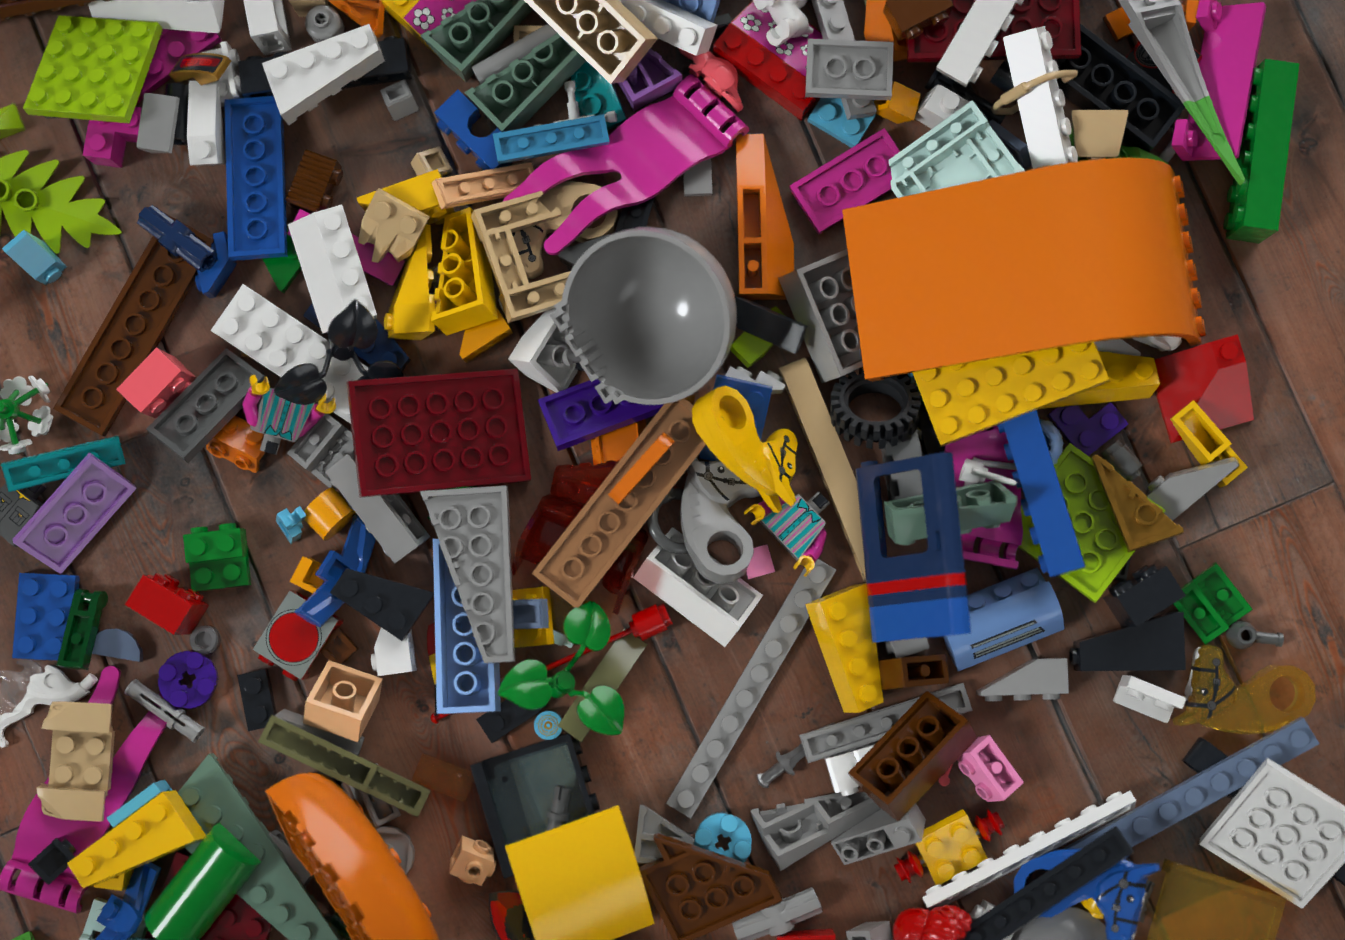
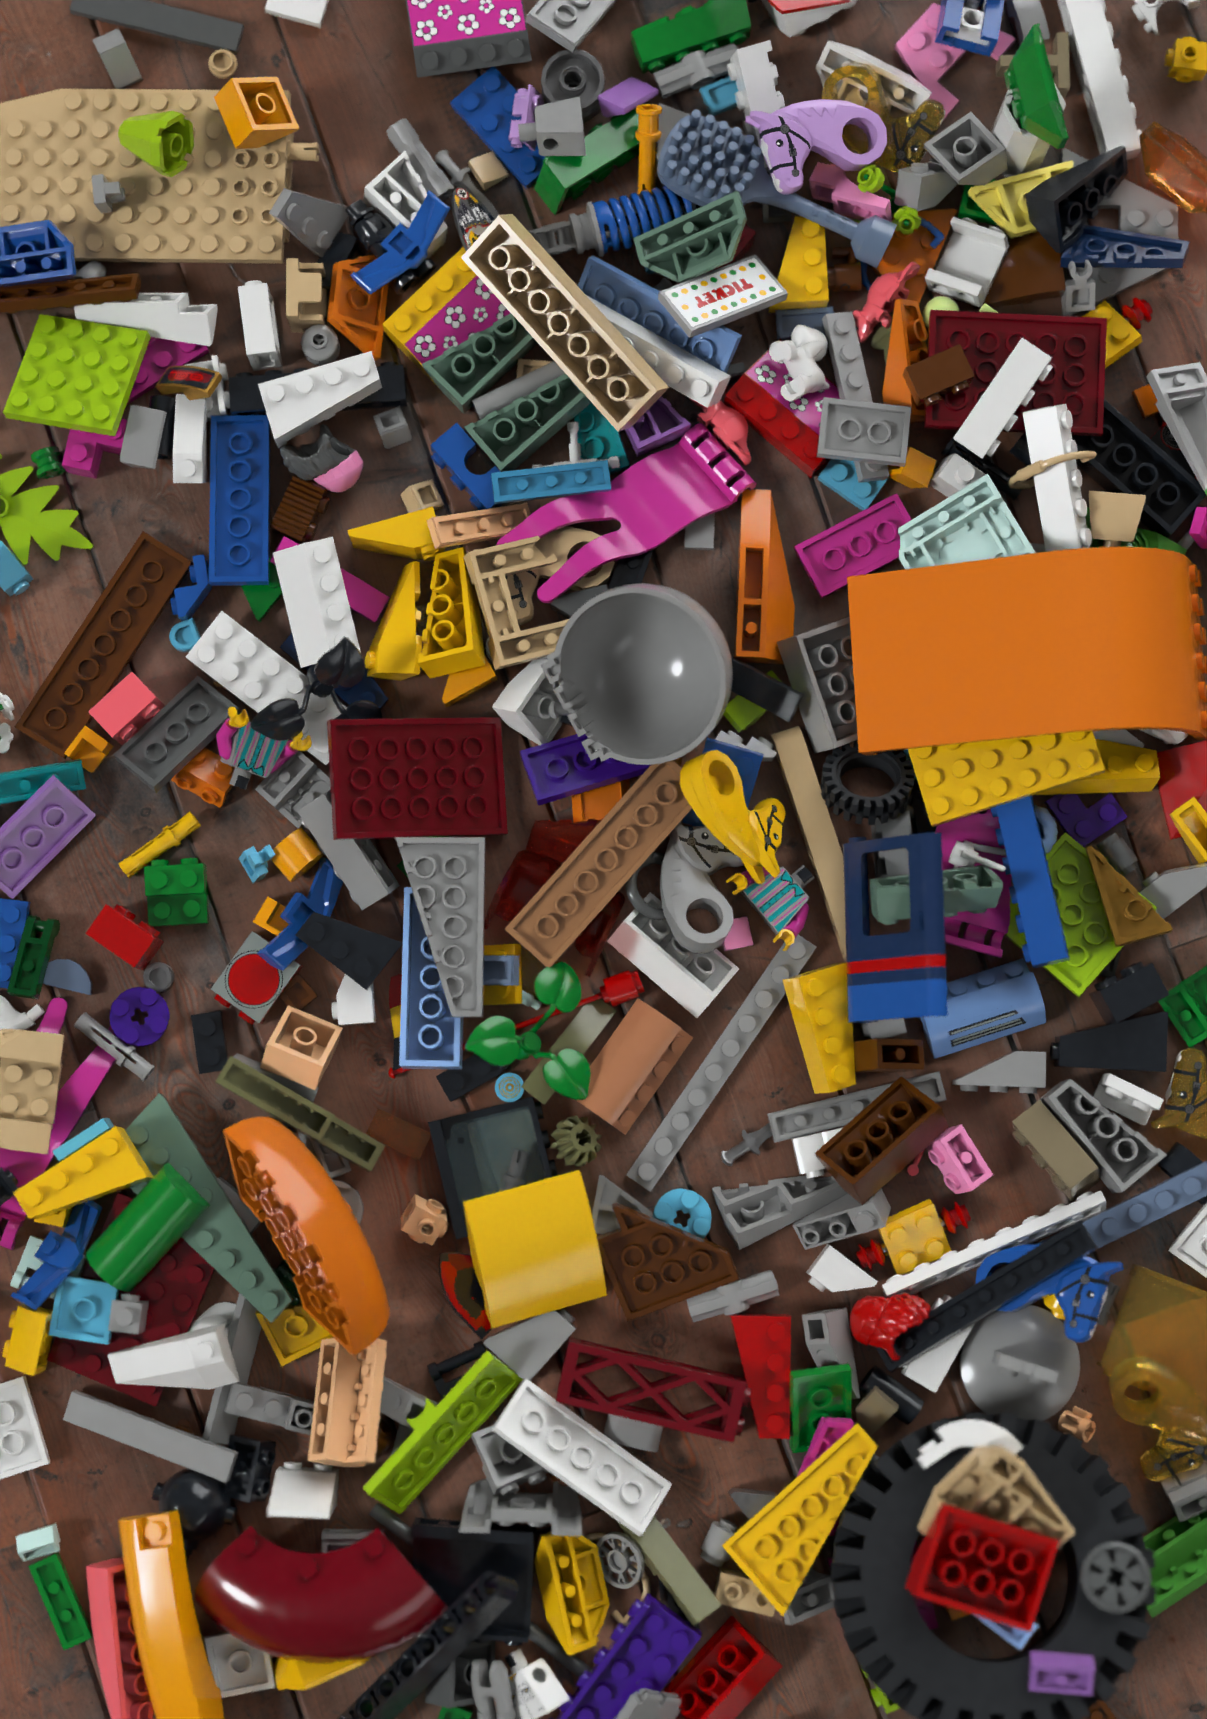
camera: 10 degrees left, 0 degrees up
(72, 155) = (47, 462): none -> green wheel
(126, 424) = (89, 748): none -> light orange panel
(177, 238) = (156, 558): dark blue piece -> none
(191, 518) = (157, 846): none -> yellow pin
(211, 309) = (184, 635): none -> medium azure tile
(336, 136) = (324, 461): none -> dark grey hair
(391, 226) = (381, 562): tan plate -> none
(607, 779) = (576, 1141): none -> olive gear
(641, 468) = (624, 828): orange beam -> none
(666, 697) = (633, 1065): none -> nougat brick
(878, 887) = (837, 1272): none -> white slope
(1015, 146) = (1028, 523): sand blue tile -> none
(1082, 754) = (1055, 1151): none -> dark tan wedge
(1126, 737) = (1103, 1135): none -> light grey wedge

